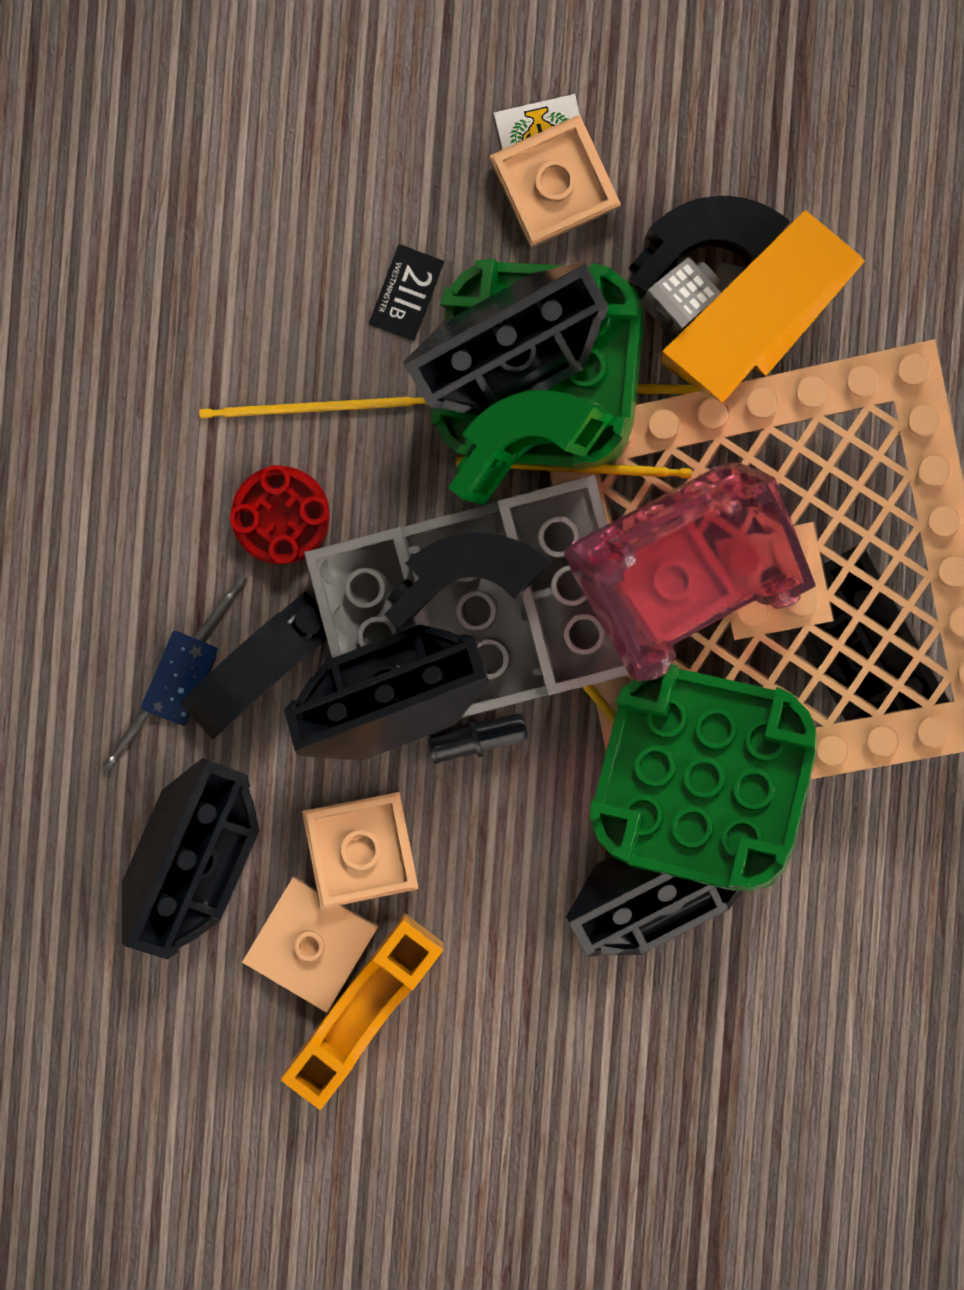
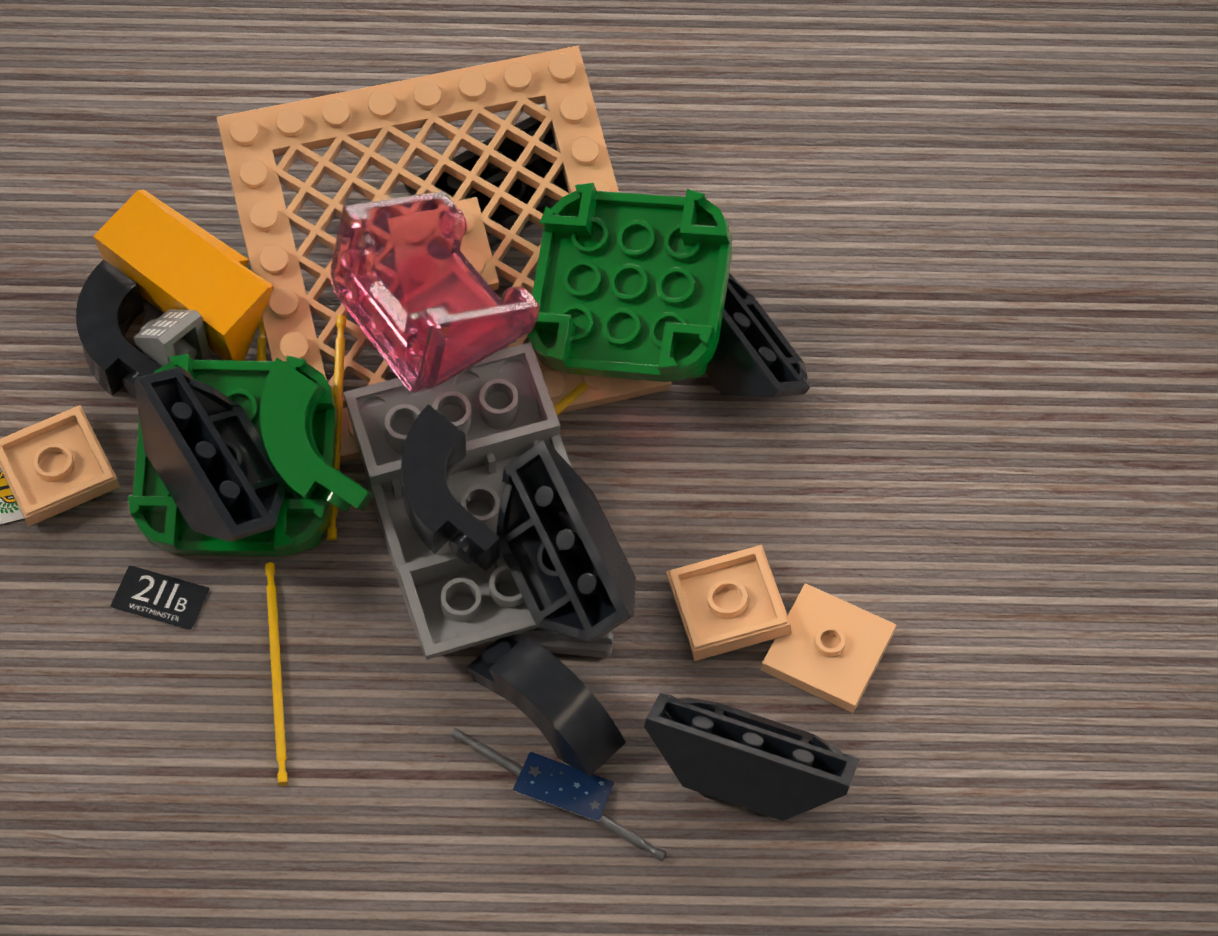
camera: 95 degrees left, 30 degrees down
(280, 515) = (389, 697): red tile -> none
(361, 1011) = (932, 611): light orange arch -> none
(477, 737) = (600, 482): black axle -> none

